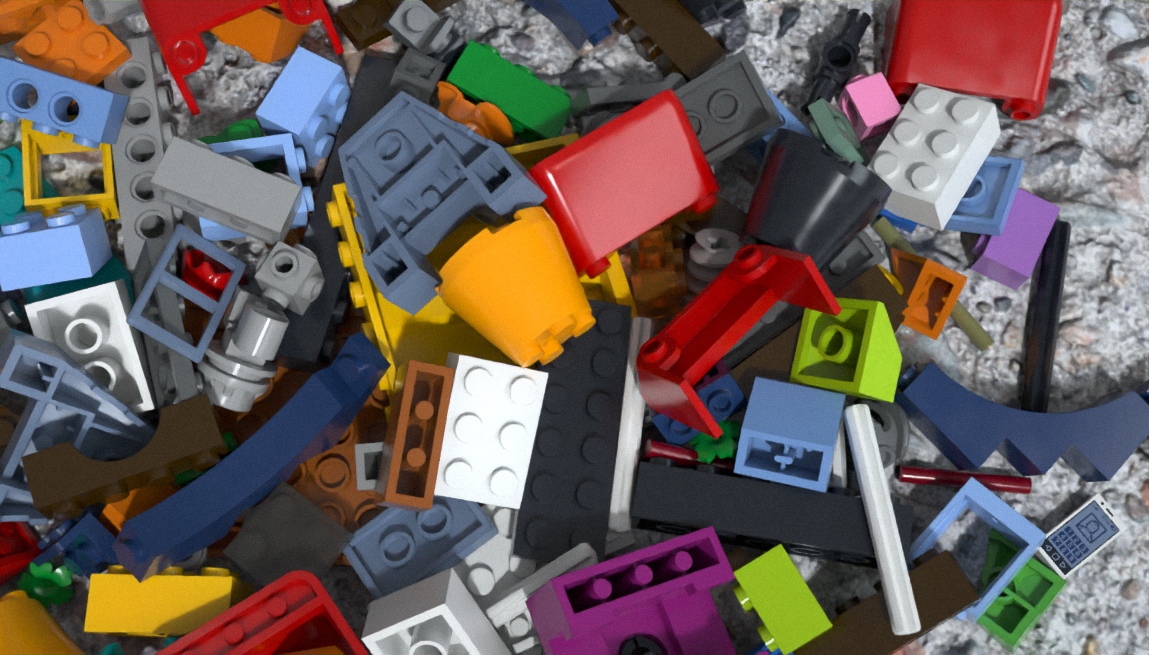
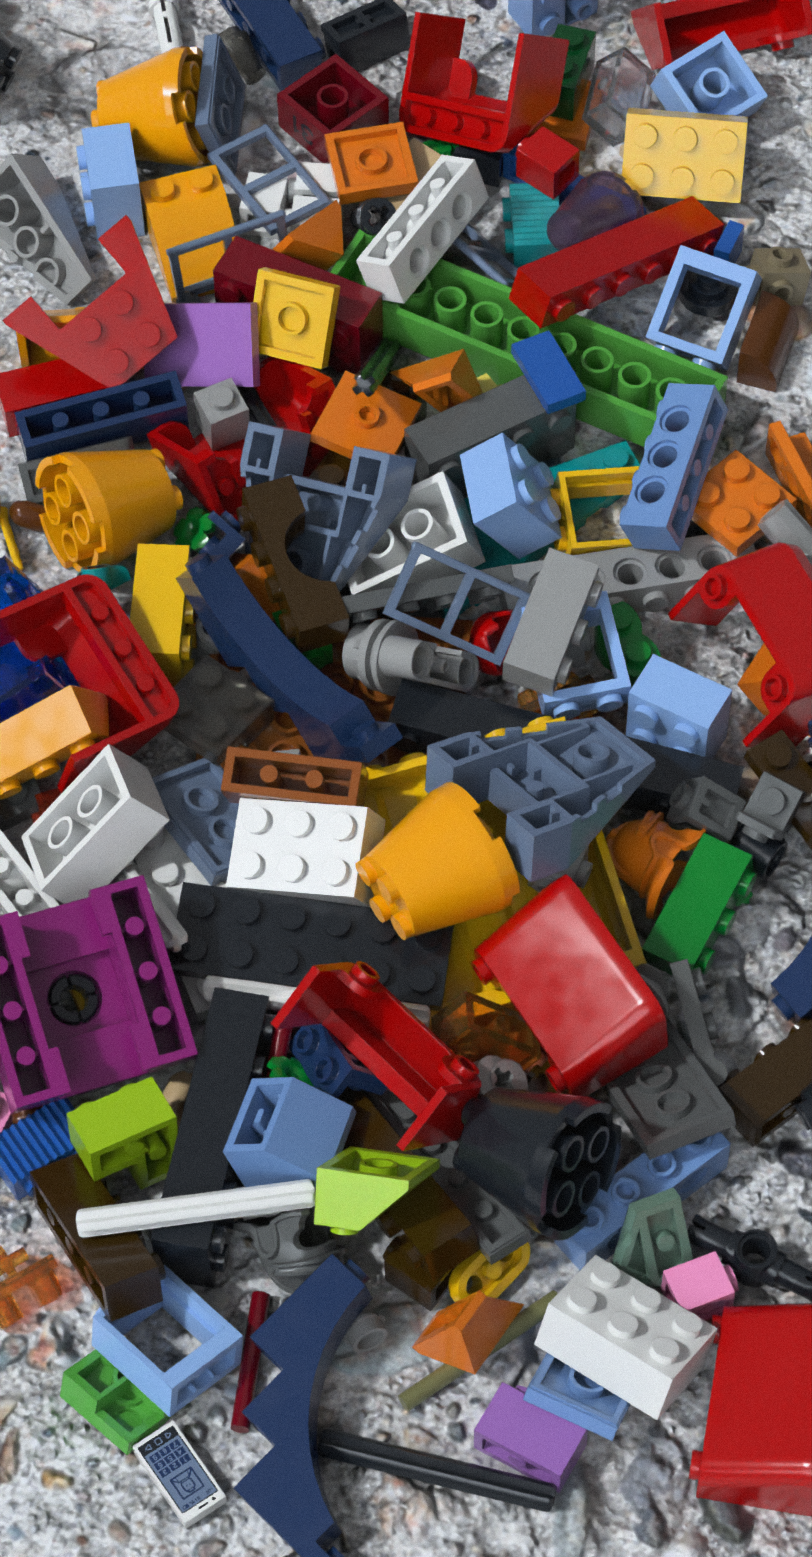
camera: 95 degrees right, 15 degrees down
(289, 277) = (470, 687): light grey brick -> none

